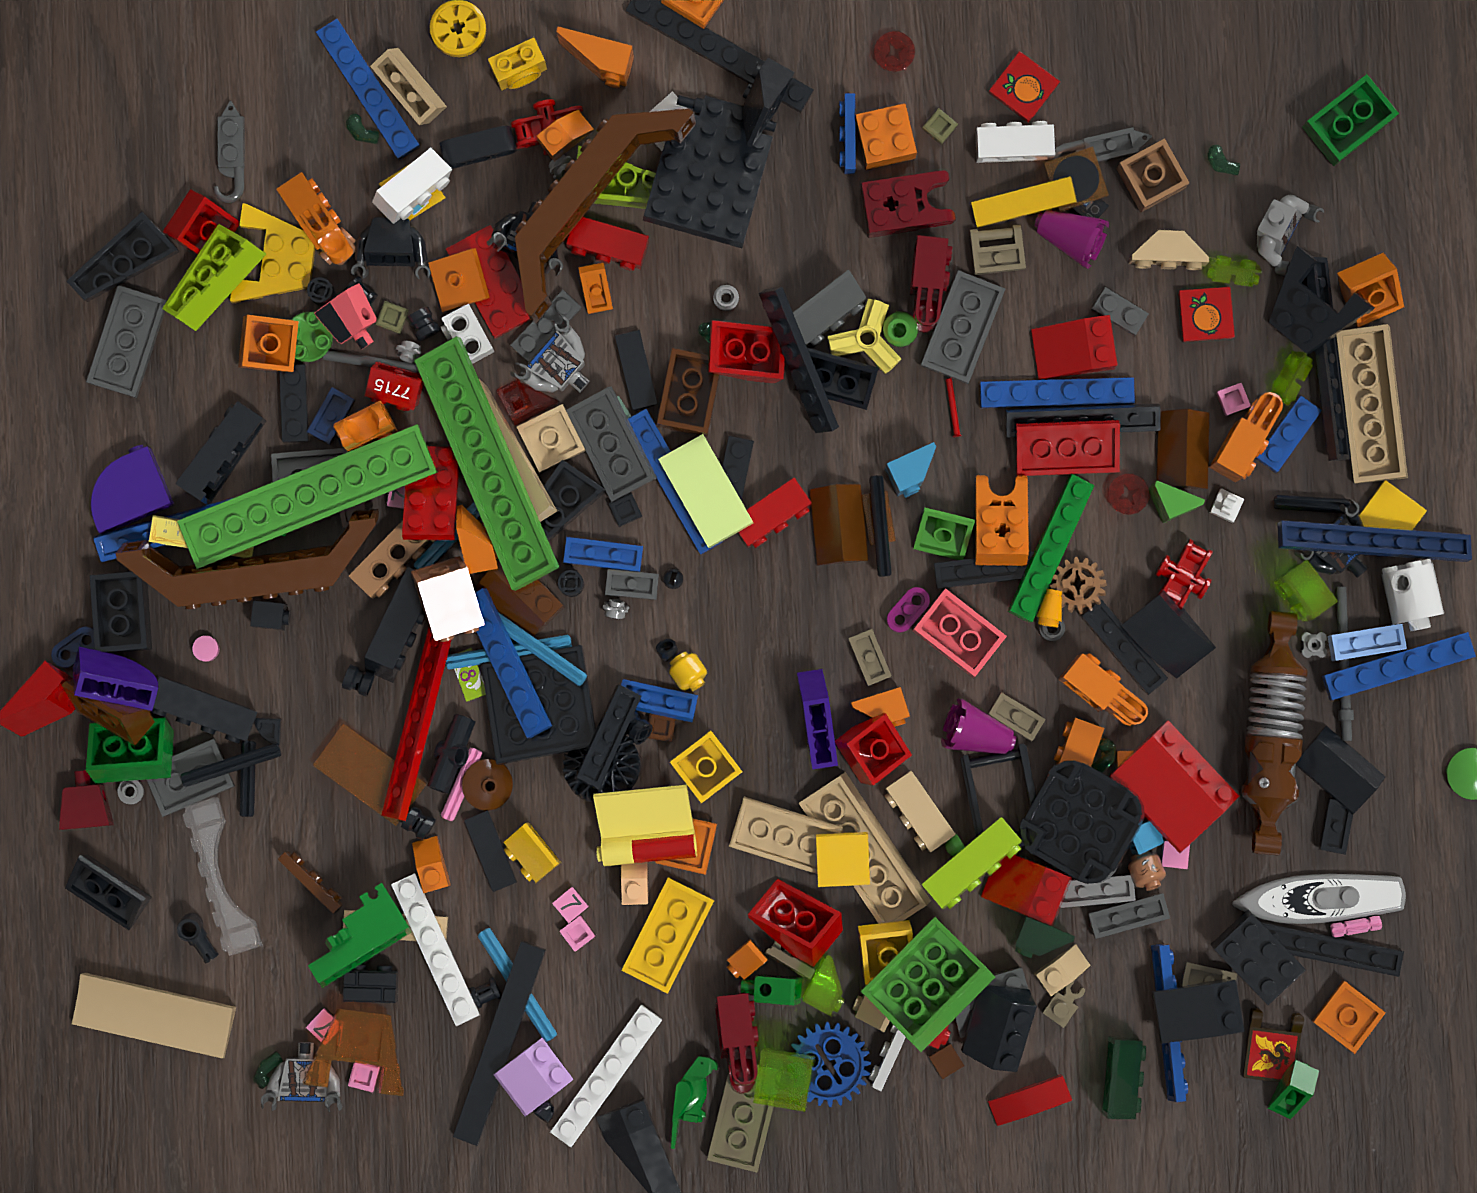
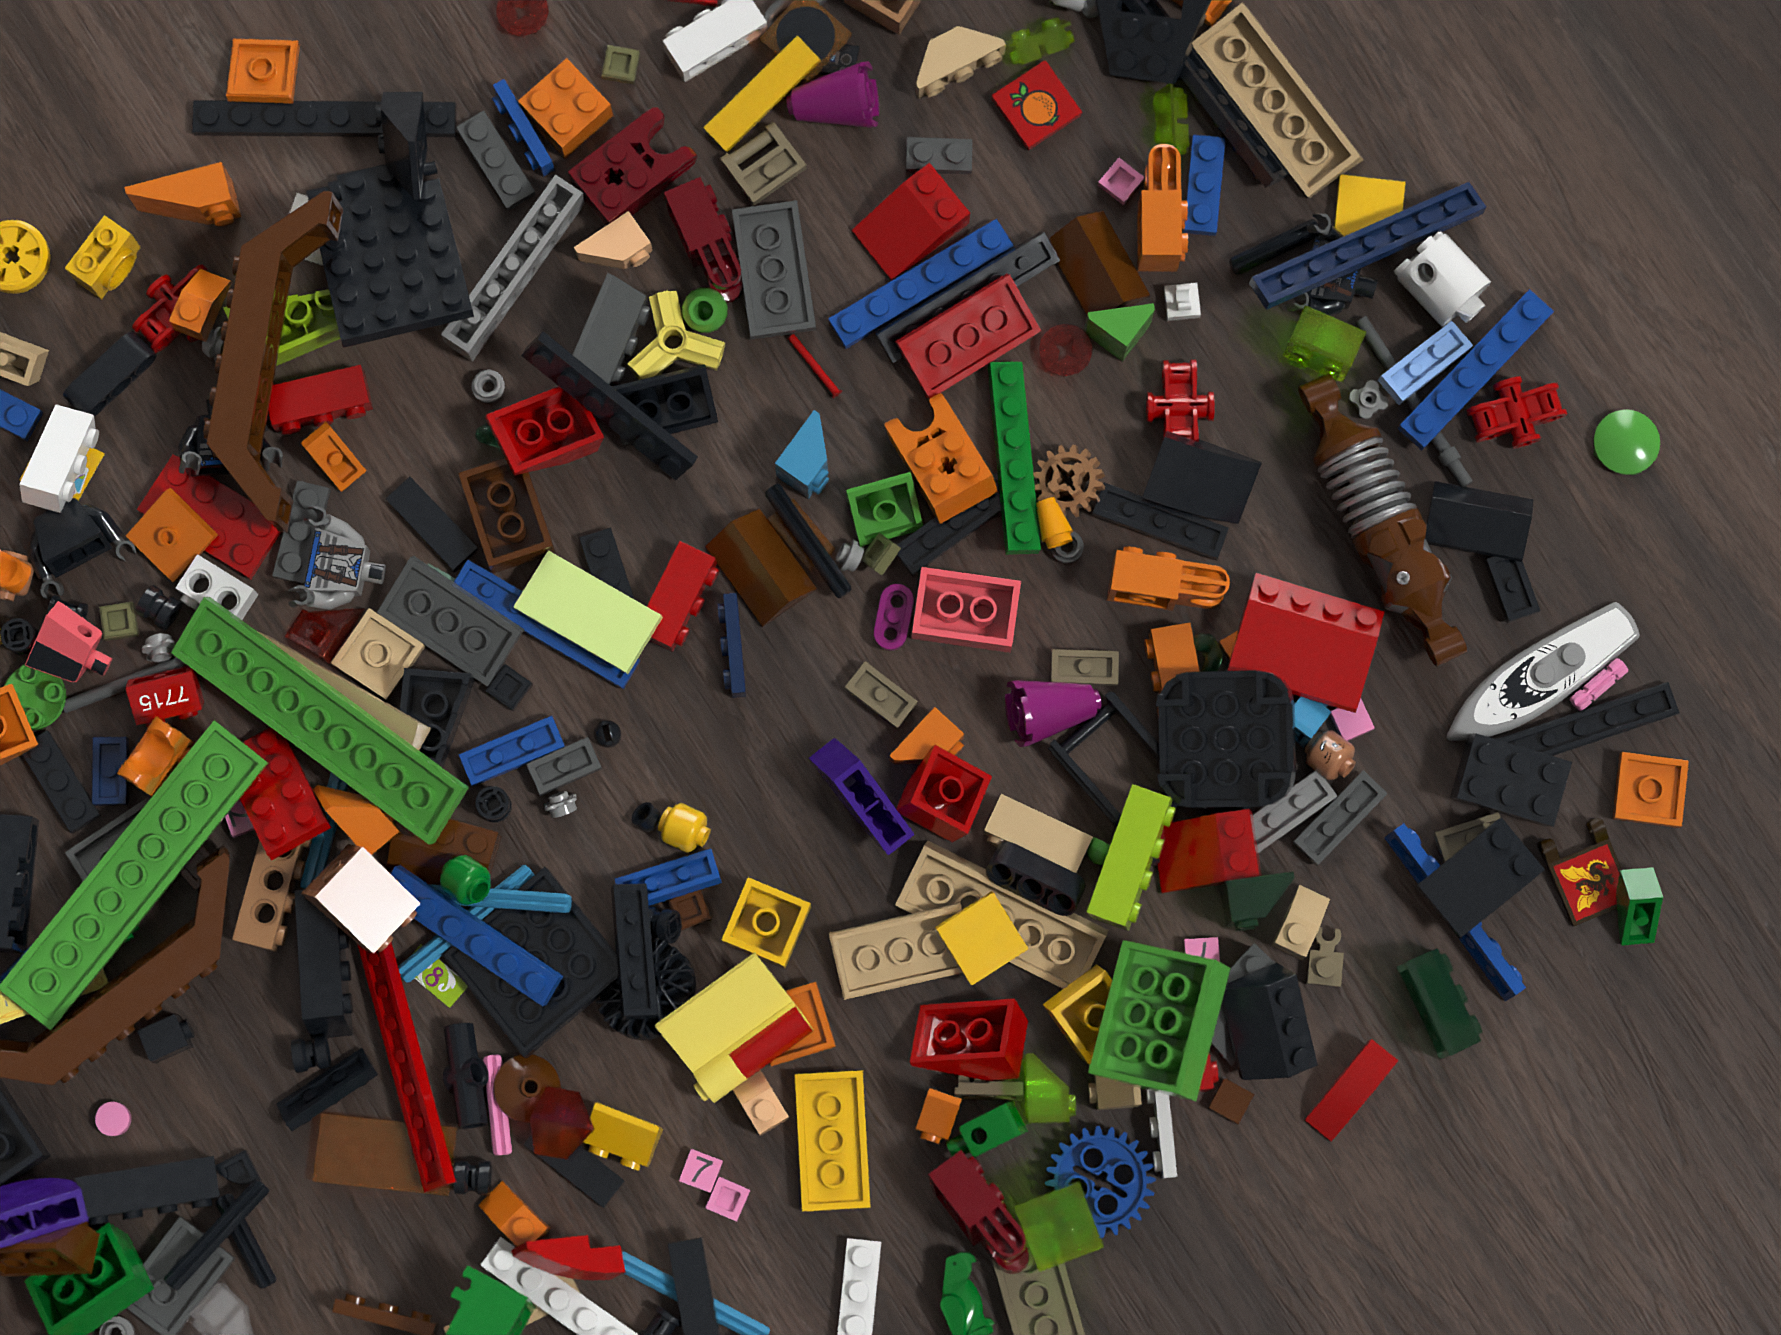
camera: 30 degrees left, 5 degrees down
(355, 710) = (327, 1089): none -> black plate
(453, 915) = (572, 1258): none -> red slope
(495, 821) = (559, 1123): none -> clear red slope
(523, 625) = (465, 880): none -> green head
(789, 567) = (732, 646): none -> dark blue plate
(790, 226) = (515, 266): none -> light grey brick
(818, 145) = (495, 160): none -> dark grey plate
(867, 250) = (616, 245): none -> light nougat slope
(901, 840) = (1035, 878): none -> black beam
(902, 551) = (849, 556): none -> light grey plate
(923, 562) = (880, 553): none -> olive tile
(985, 951) = (1203, 947): none -> bright pink tile
(1409, 711) = (1516, 412): none -> red axle

